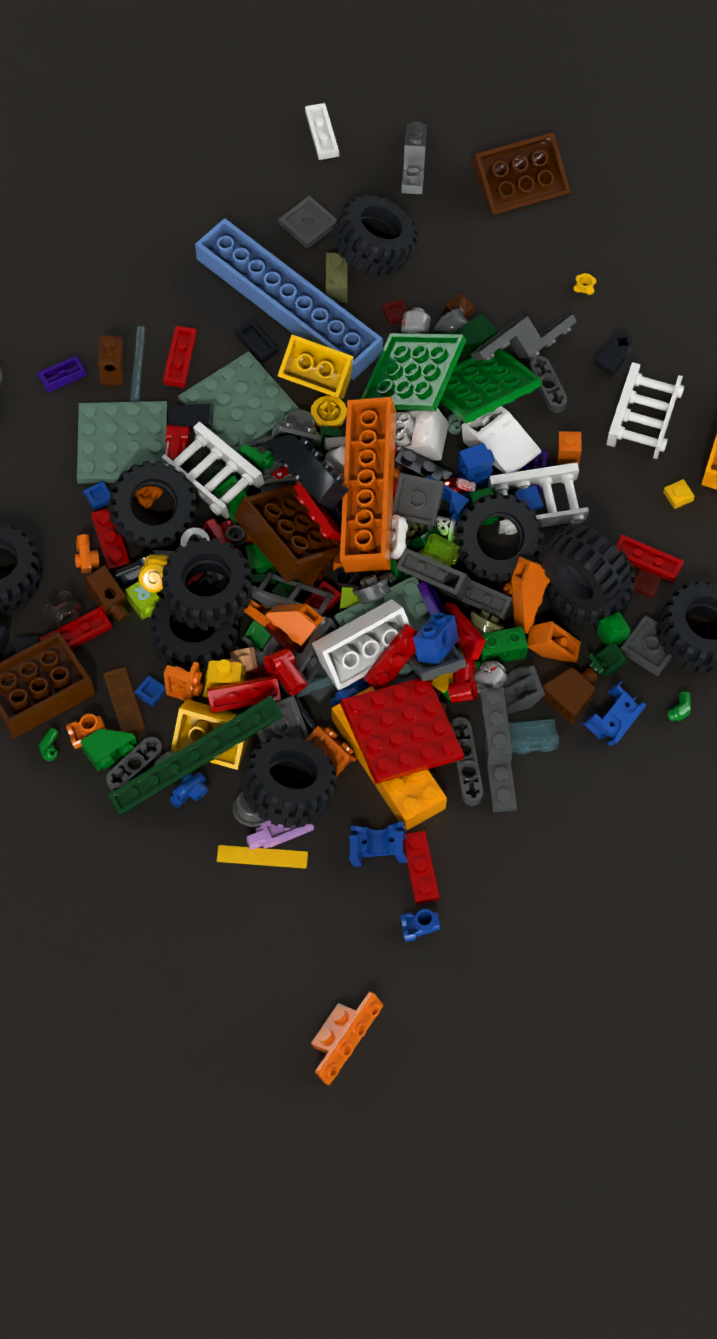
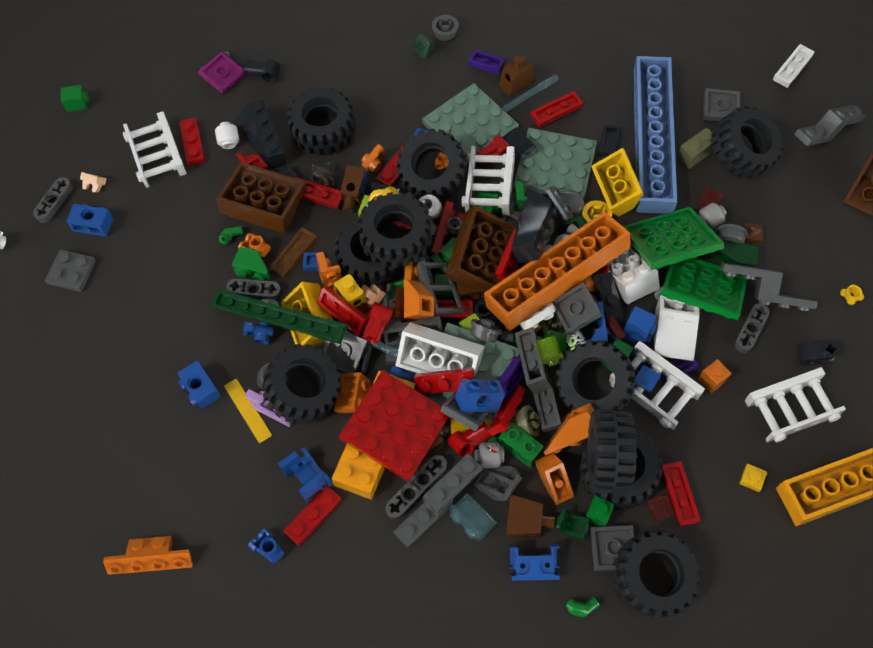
camera: 55 degrees right, 0 degrees up
(189, 872) = (194, 375): none -> blue brick

